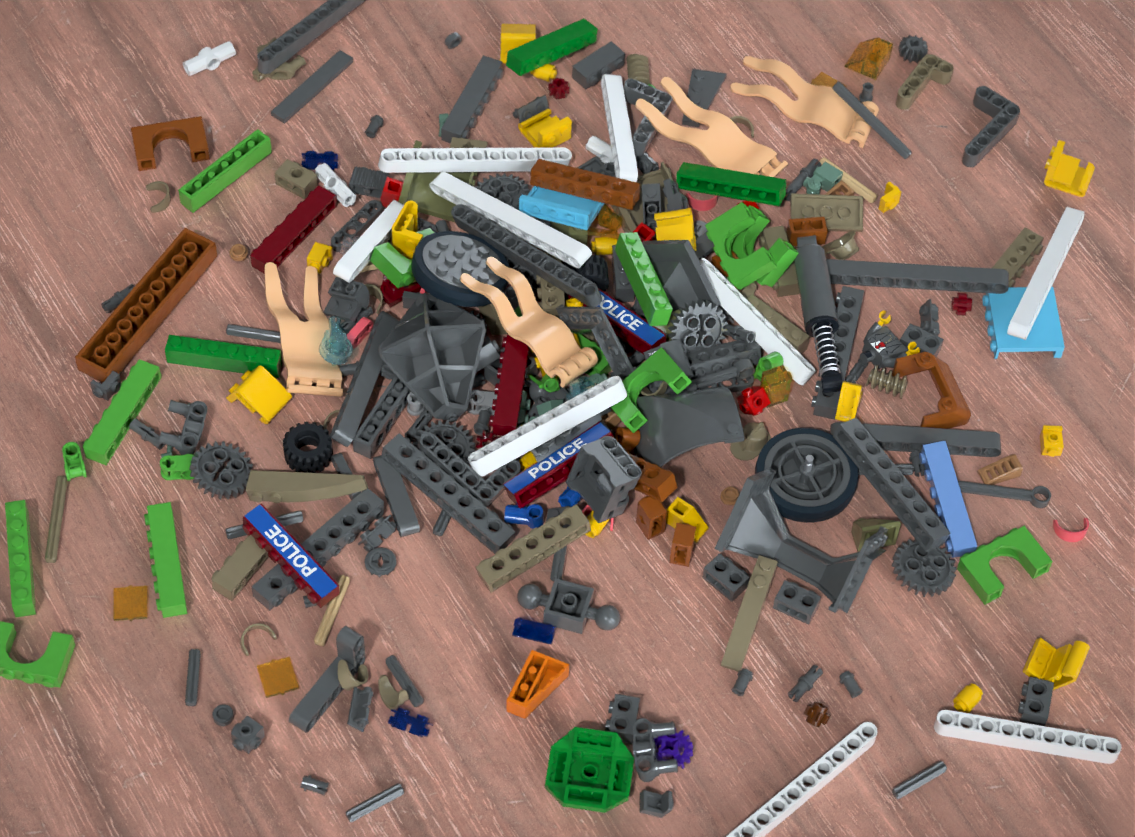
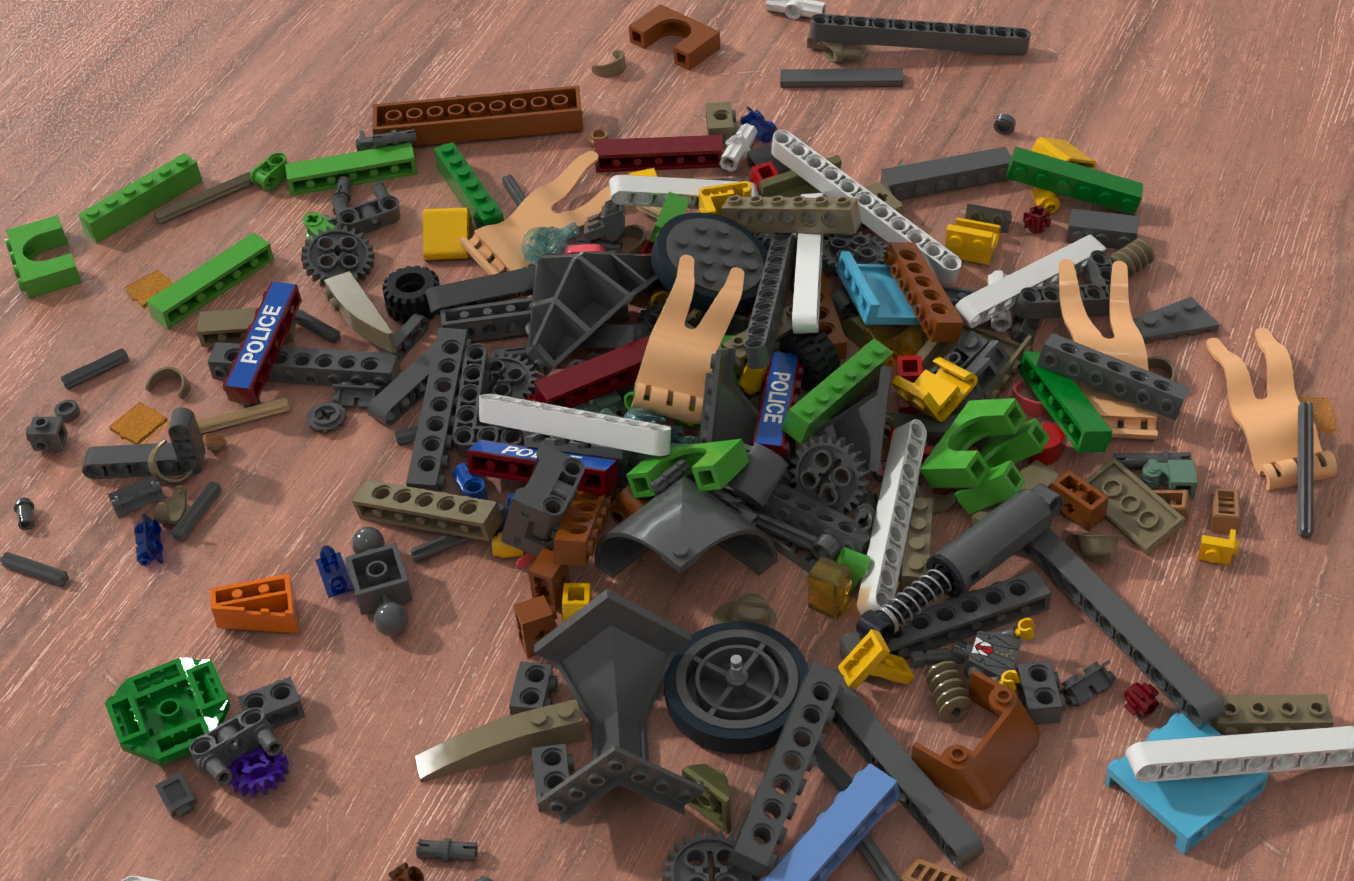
camera: 60 degrees right, 10 degrees down
(126, 366) = (394, 138): none -> dark grey pin
(225, 171) = (677, 78): bright green brick -> none
(375, 123) = (840, 135): dark grey pin -> none
(467, 199) = (794, 214): none -> dark tan brick
(643, 403) = (669, 476): none -> dark grey axle
(737, 148) = (1113, 376): none -> dark grey brick
(742, 682) = (402, 787): dark grey pin -> none
(753, 400) = (784, 588): red brick -> none
(855, 185) = (1202, 500): tan axle -> none
(866, 94) = (1341, 446): dark grey pin -> none
(872, 181) = (1225, 513): none -> medium nougat slope

